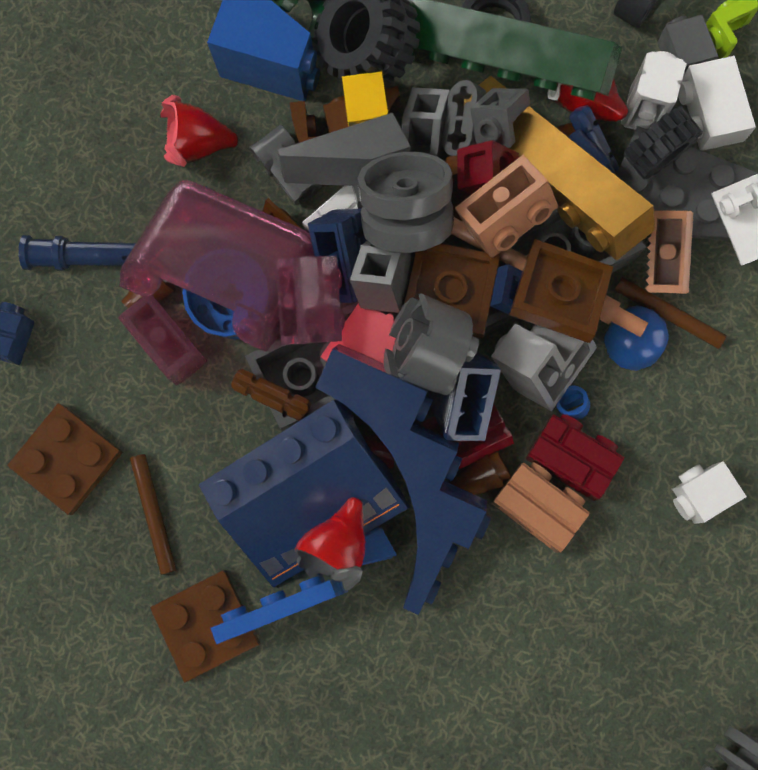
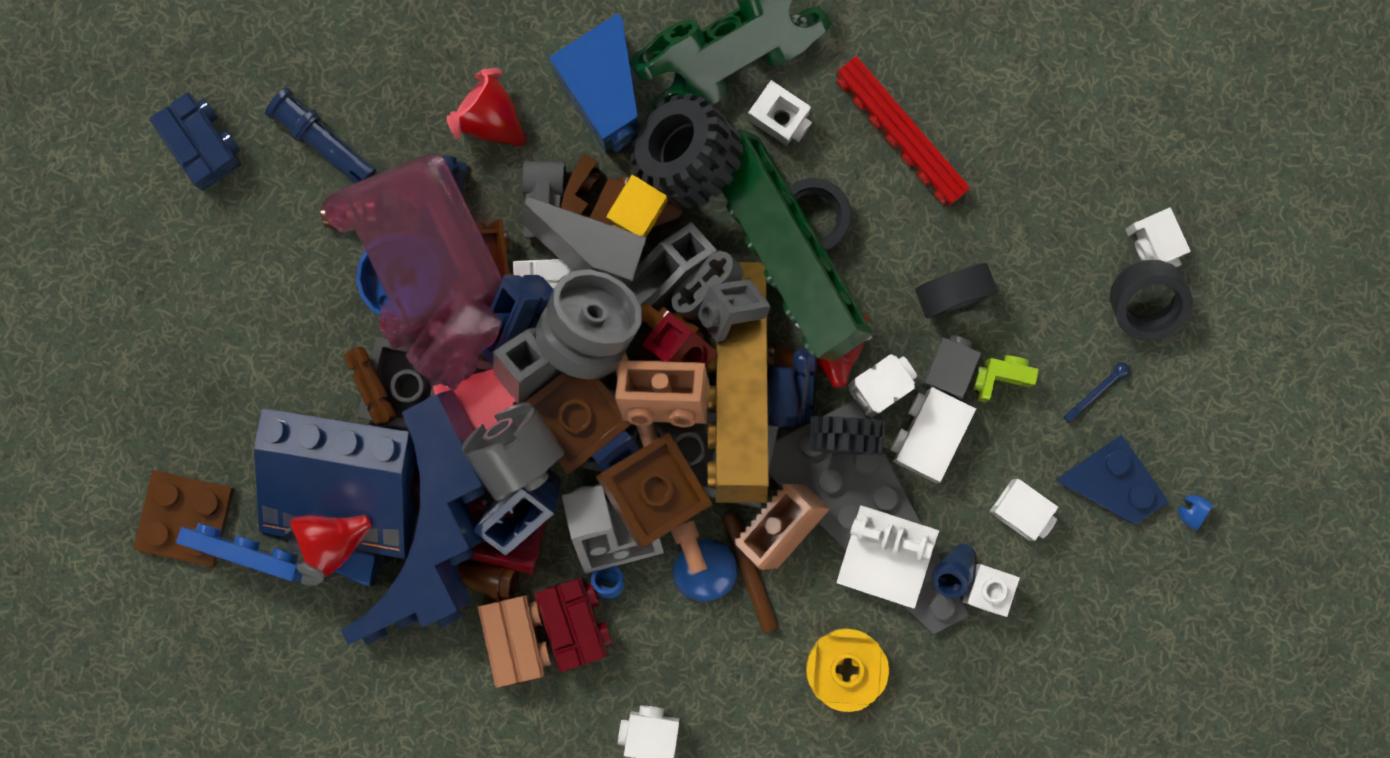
camera: 30 degrees right, 5 degrees up
(65, 459) = (178, 298): reddish brown plate -> none
(153, 514) = (212, 398): reddish brown bar -> none
(162, 339) = (327, 268): clear pink brick -> none

